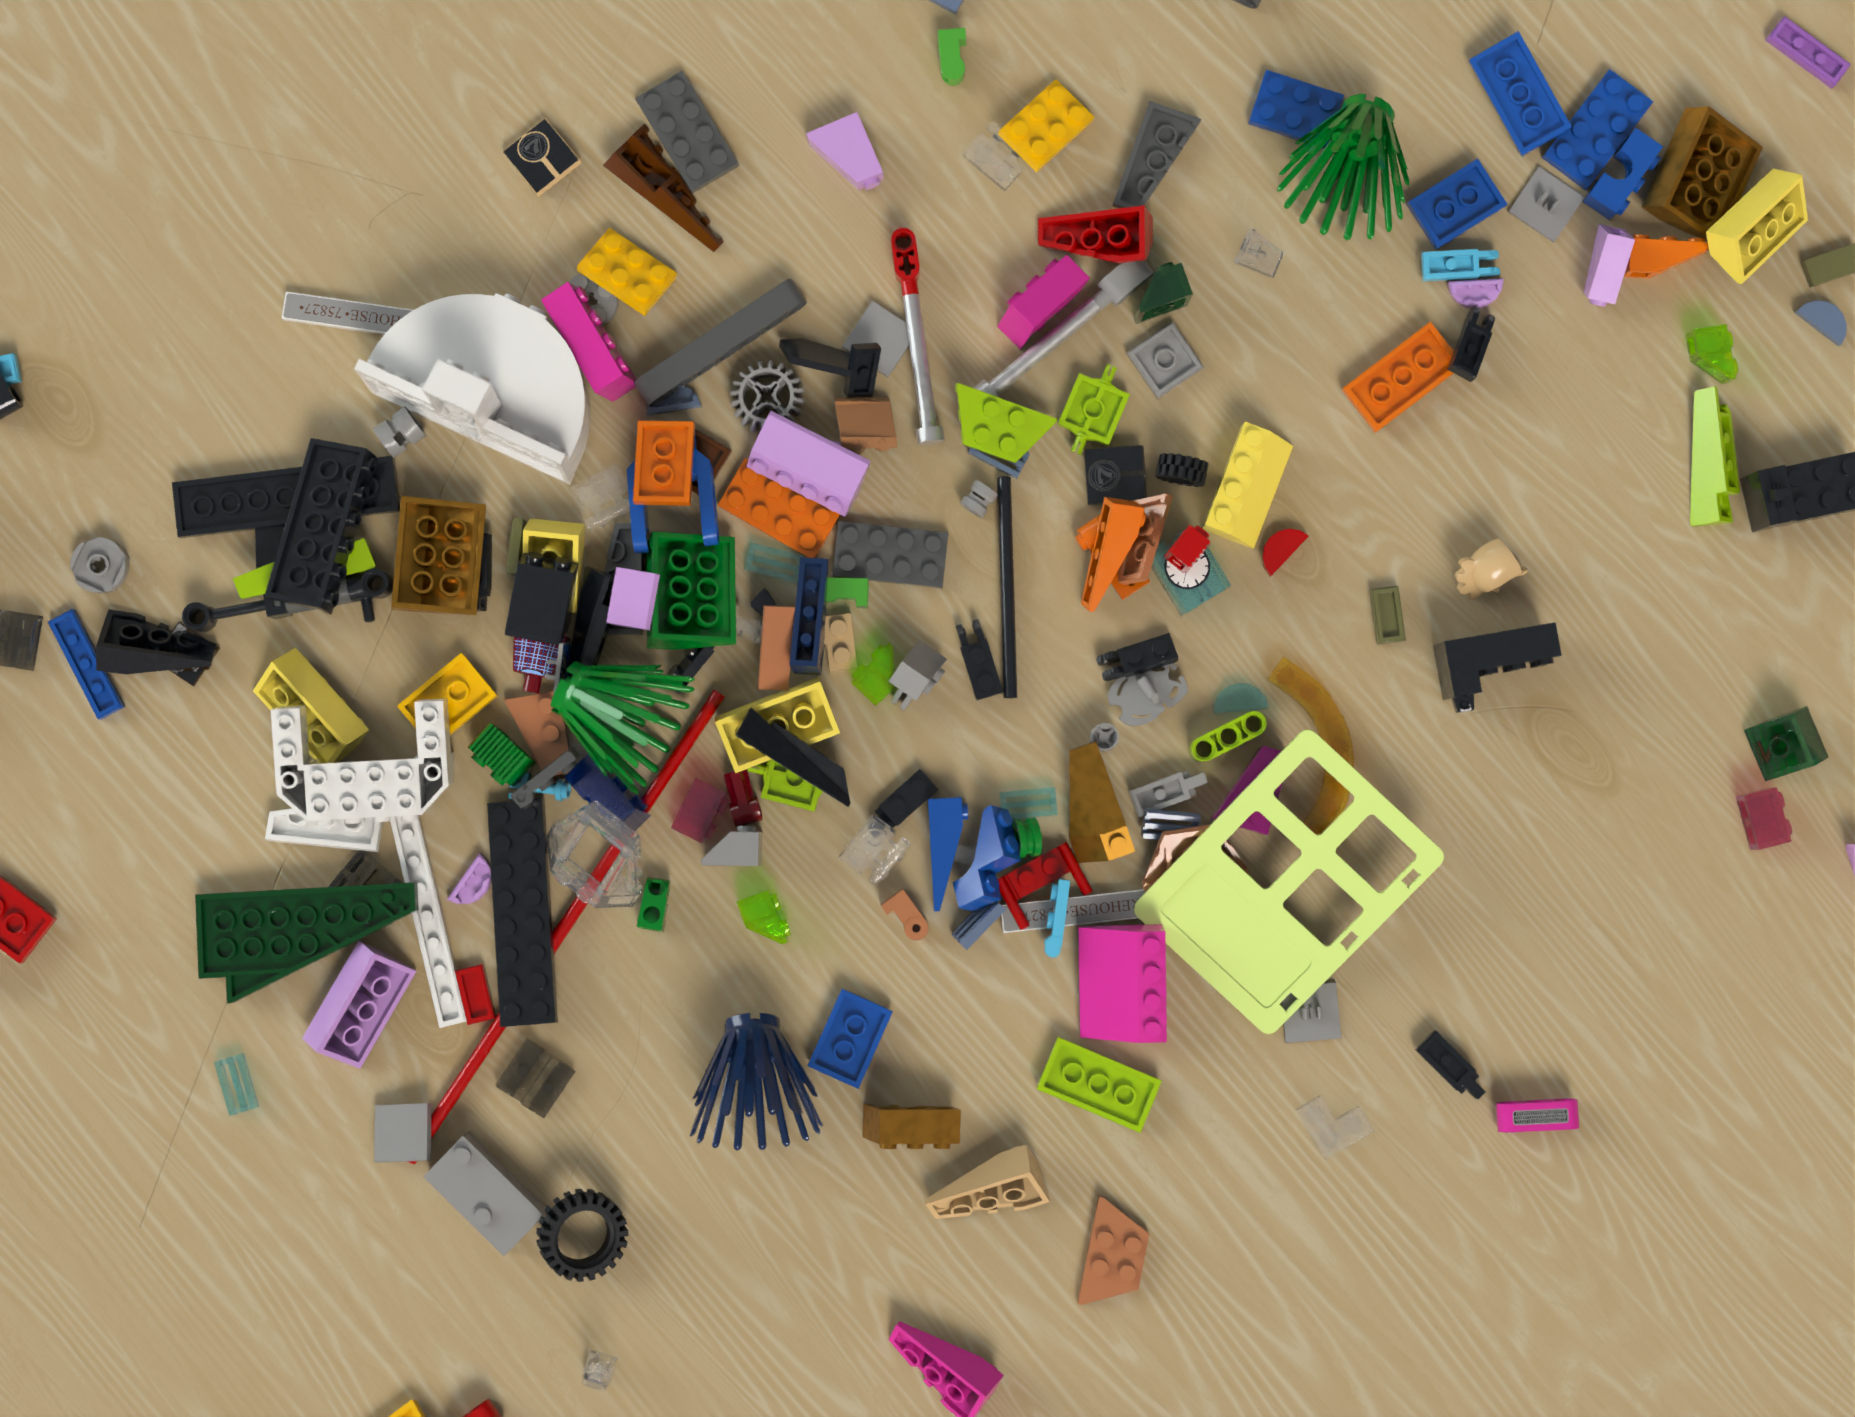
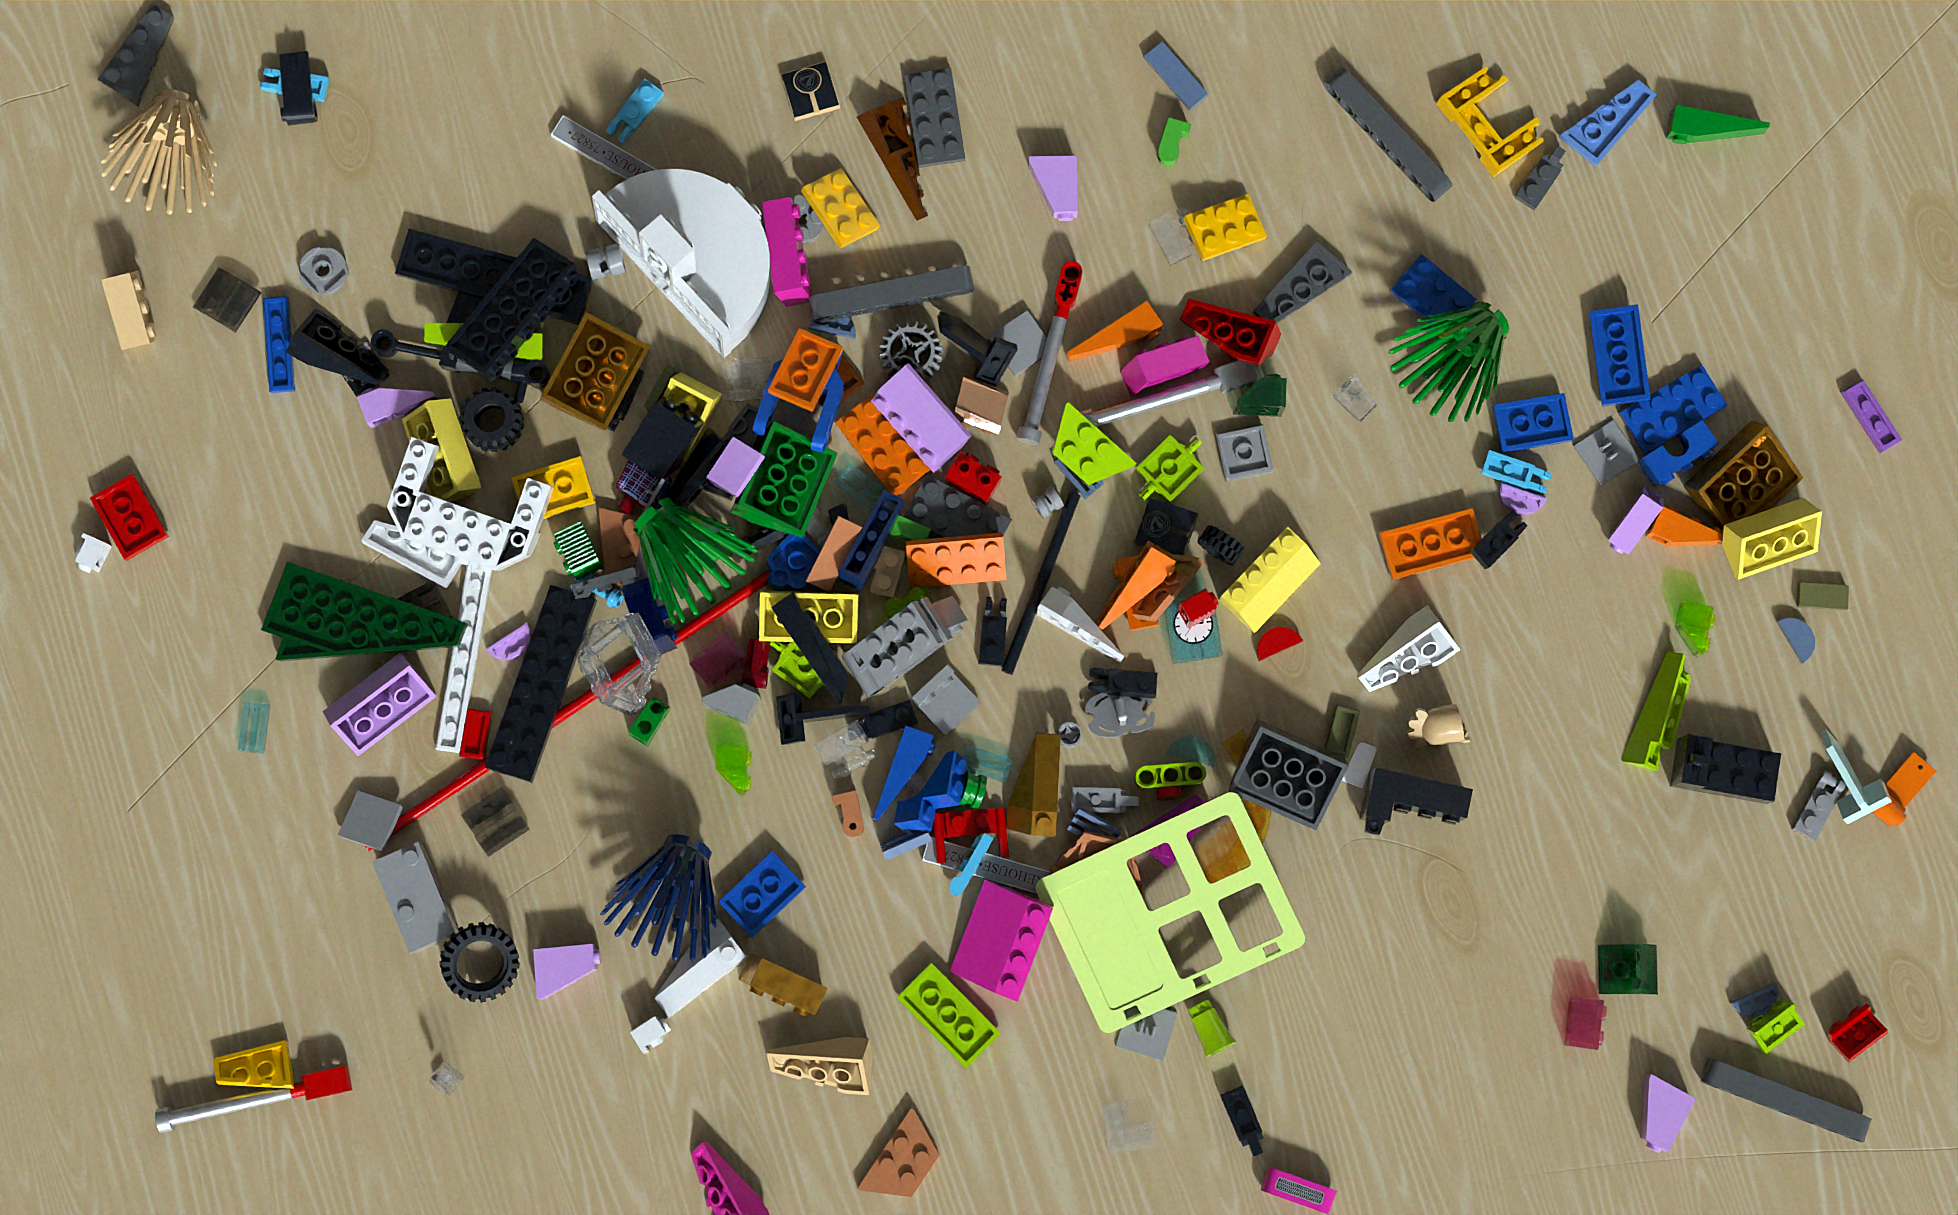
camera: 20 degrees right, 5 degrees down
(231, 681) = (388, 404): none -> lavender slope
(327, 646) = (478, 405): none -> black tyre
(362, 253) = (636, 109): none -> medium azure hinge
(671, 1201) = (563, 966): none -> lavender slope
(735, 675) = (791, 563): none -> blue plate
(794, 1233) = (650, 1033): none -> white brick
(805, 841) = (792, 718): none -> black piece
(813, 1158) = (693, 978): none -> white wedge
(885, 719) = (897, 646): none -> light grey hinge
(889, 504) = (974, 477): none -> red brick
(908, 600) = (956, 560): none -> orange plate
(959, 754) = (945, 700): none -> light grey bracket
(989, 278) = (1128, 330): none -> orange slope
(1052, 611) = (1070, 617): none -> white wedge
(1233, 755) = (1169, 793): none -> red tile
(1351, 685) = (1287, 774): none -> dark grey slope
(1378, 985) = (1210, 1028): none -> lime plant
(1420, 643) = (1360, 765): none -> white sticker
(1428, 492) = (1414, 645): none -> white wedge

